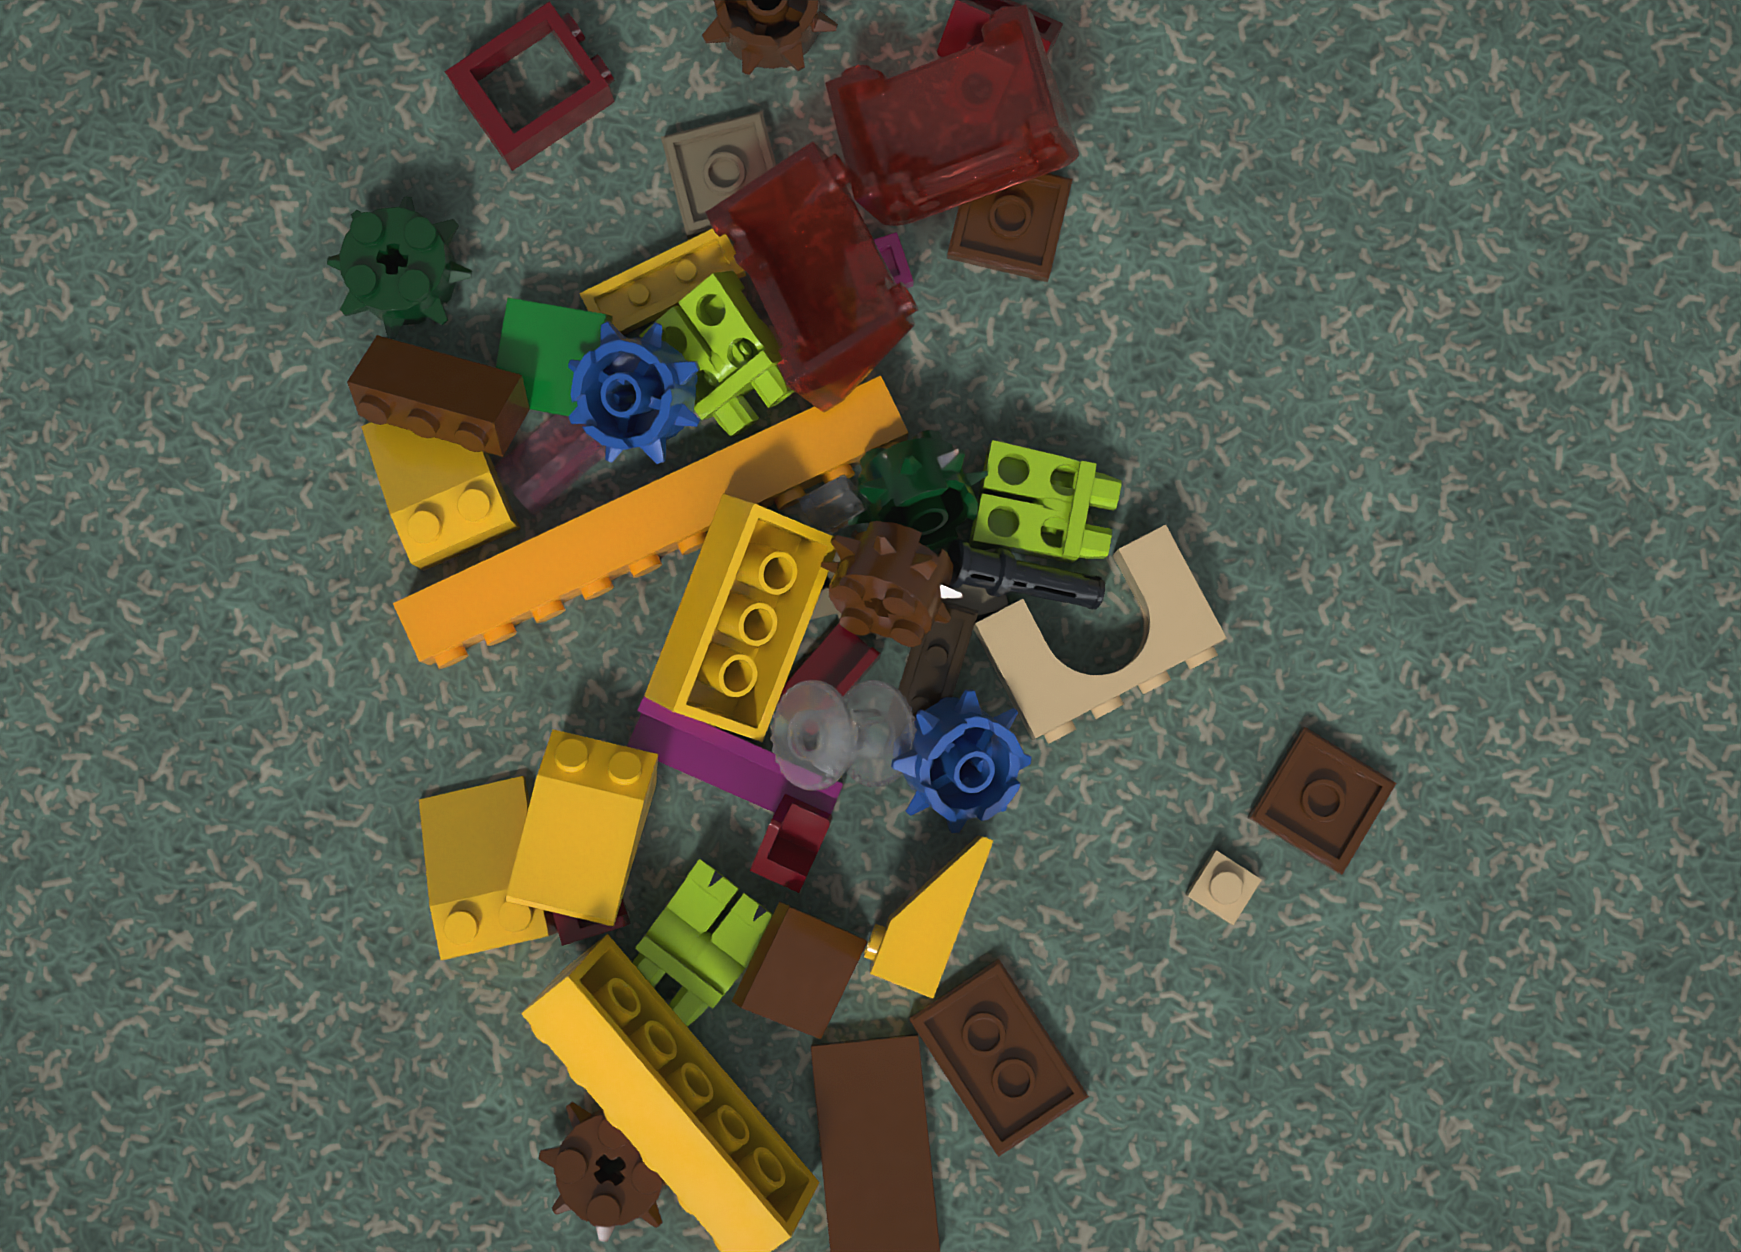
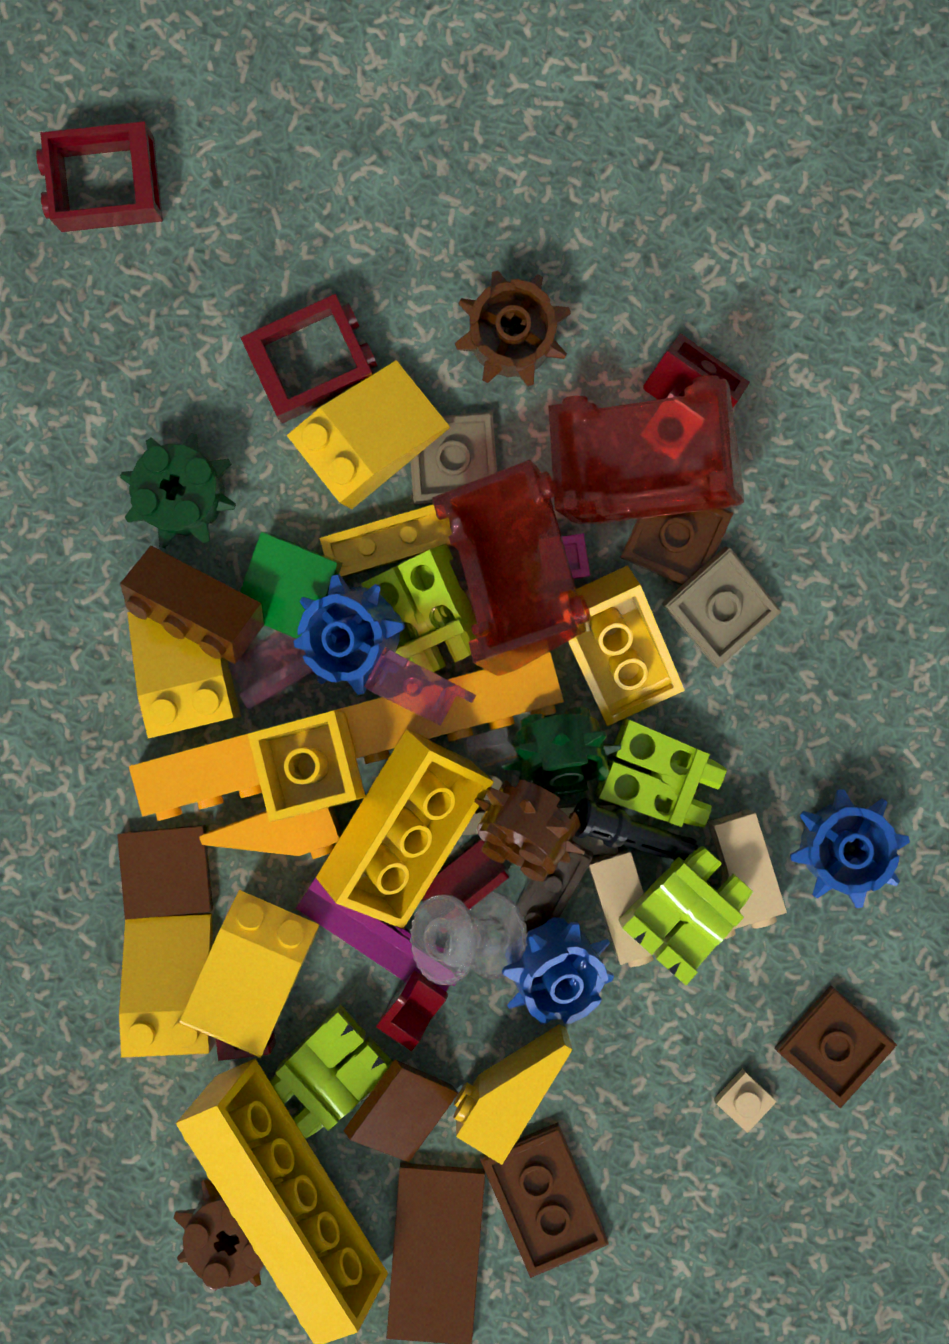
camera: 10 degrees right, 5 degrees up
(458, 732) = (164, 872): none -> reddish brown tile
(604, 647) = (294, 836): none -> light orange slope
(609, 555) = (306, 765): none -> yellow brick
(617, 159) = (368, 433): none -> yellow slope
(725, 436) = (414, 686): none -> clear pink panel
(968, 362) = (623, 649): none -> yellow slope
(1079, 292) = (721, 607): none -> dark tan tile
(1113, 640) = (684, 915): none -> lime hips
(1316, 538) = (874, 852): none -> blue brick

